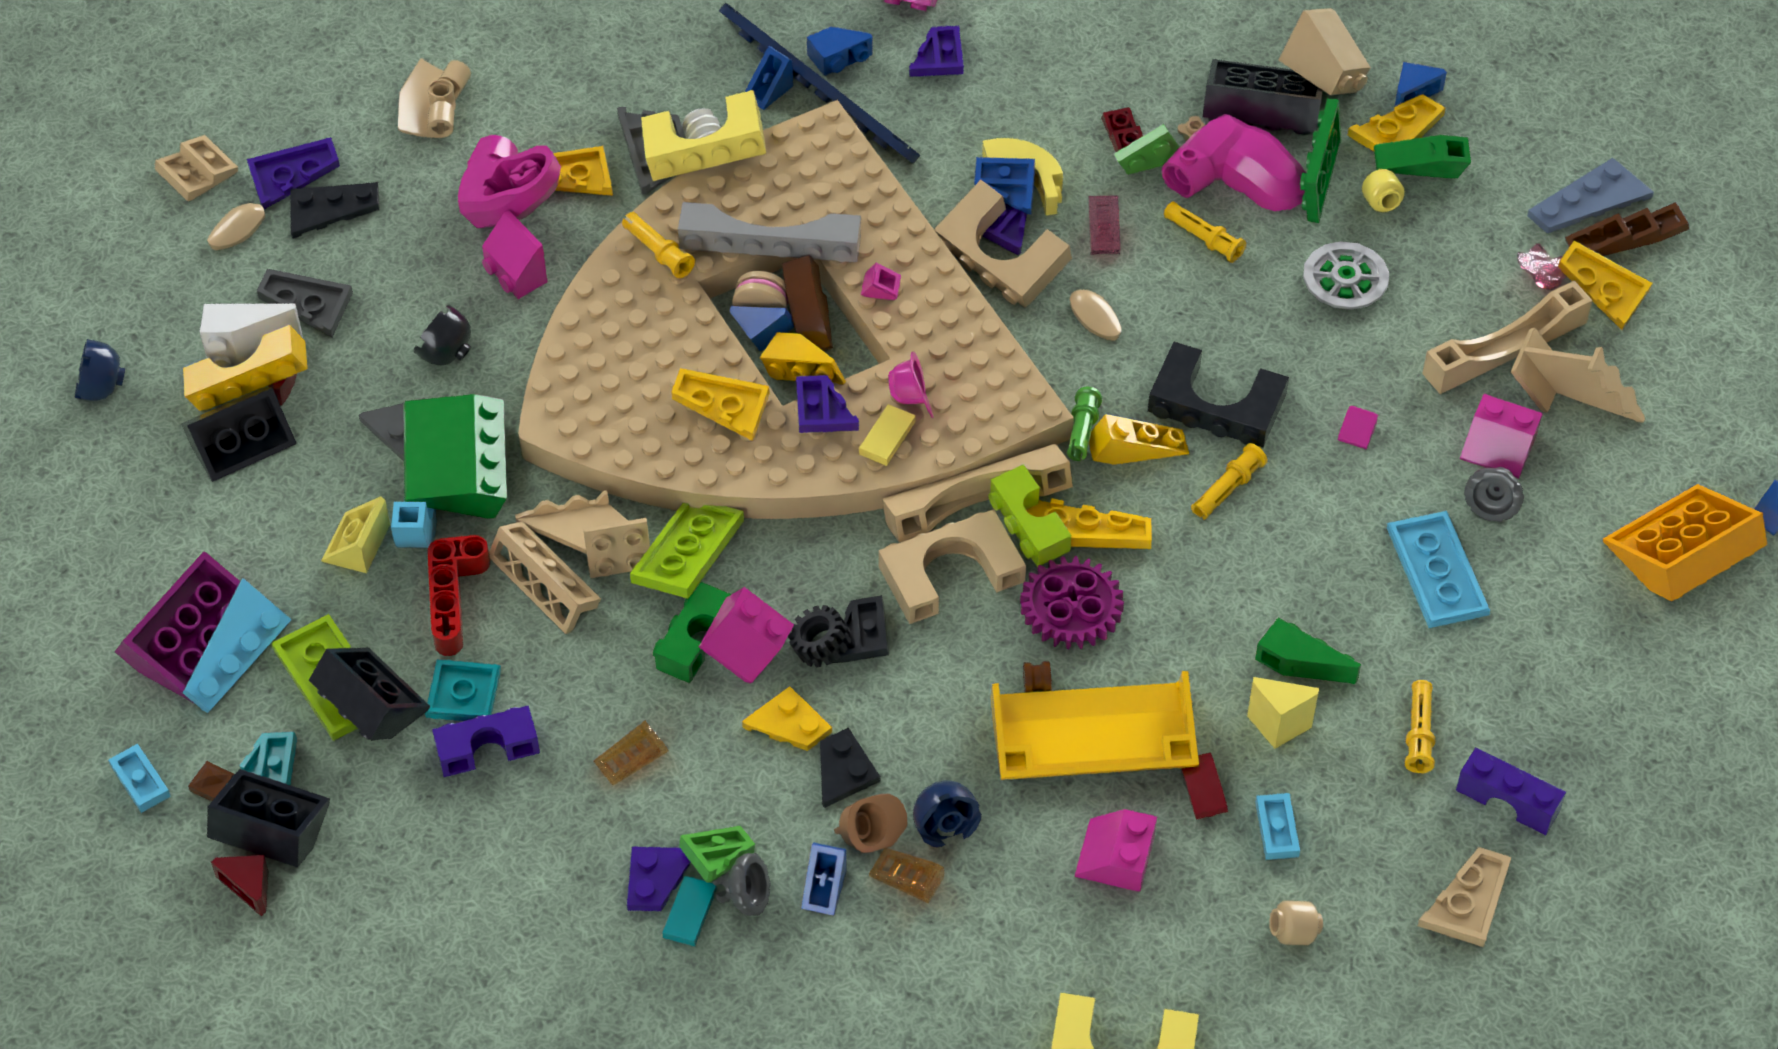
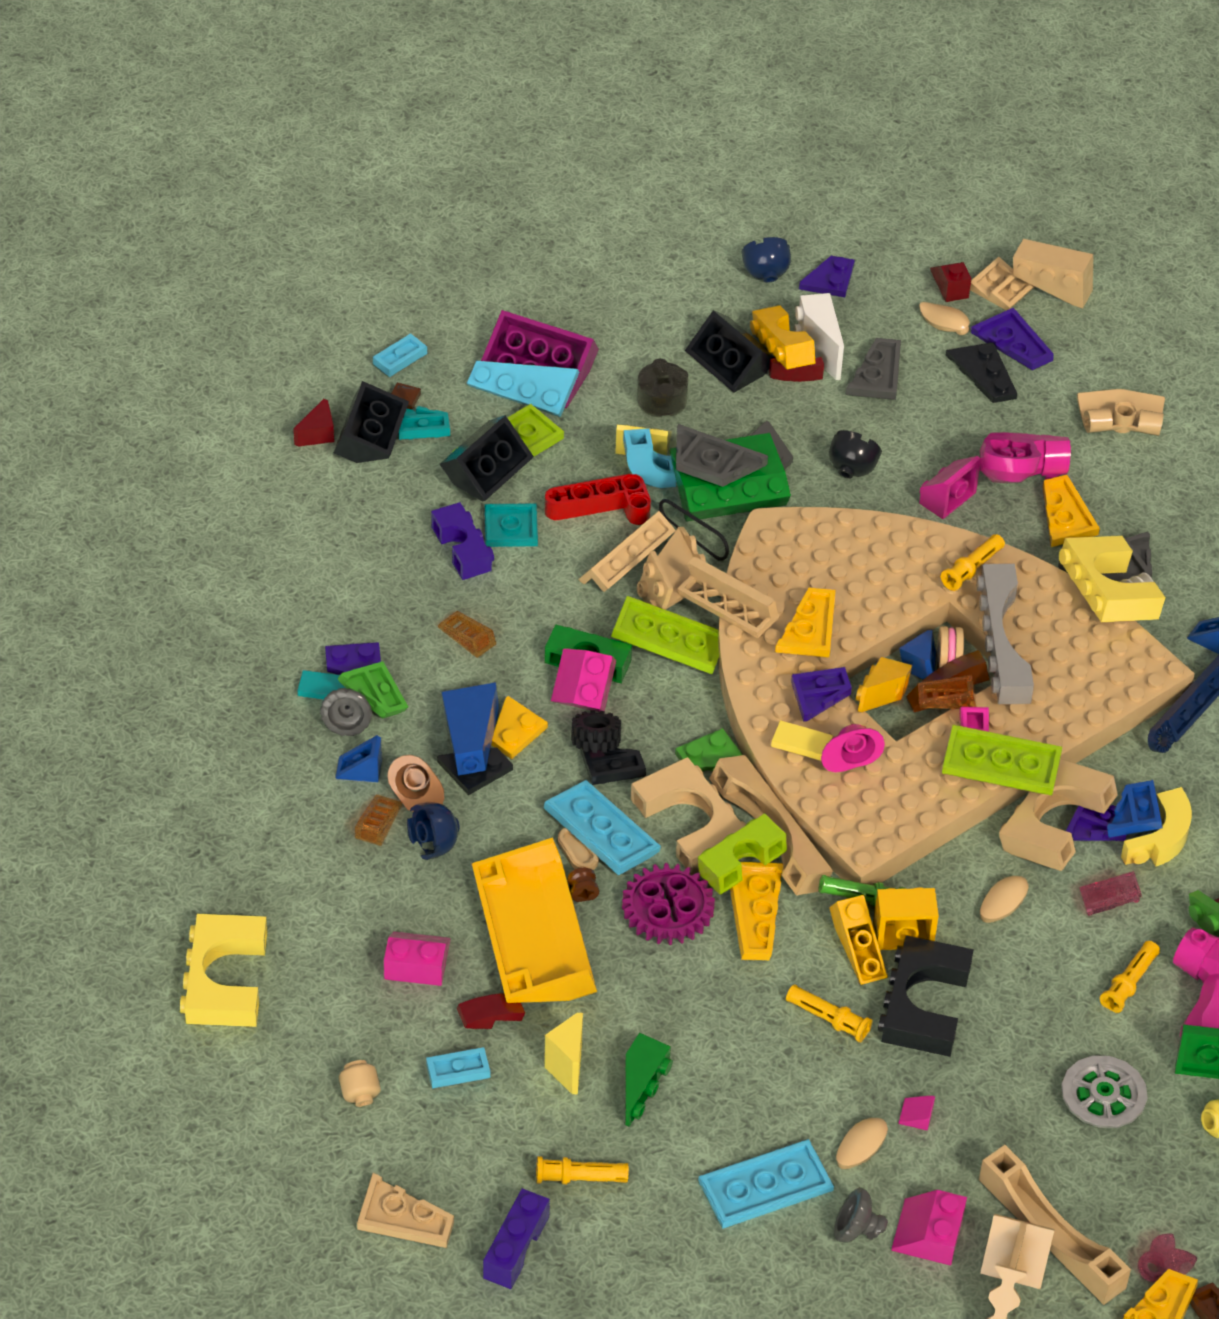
camera: 80 degrees right, 5 degrees down
(133, 321) = (830, 277): none -> dark purple wing
(177, 207) = (952, 281): none -> dark red slope
(207, 107) = (1055, 270): none -> tan wedge
(285, 504) = (662, 388): none -> clear smoke brick
(442, 455) = (714, 458): none -> dark grey wing
(518, 494) = (700, 522): none -> black piece
(659, 462) = (731, 589): none -> tan fence
(795, 757) = (471, 724): none -> blue slope
(841, 277) = (948, 701): none -> clear orange slope
(858, 537) = (708, 750): none -> bright green wing
(944, 266) = (1002, 760): none -> lime plate
(952, 652) = (602, 827): none -> medium azure tile
(976, 680) = (576, 851): none -> tan tile
(1127, 383) = (904, 913): none -> yellow brick
(1394, 479) = (861, 1142): none -> tan arm

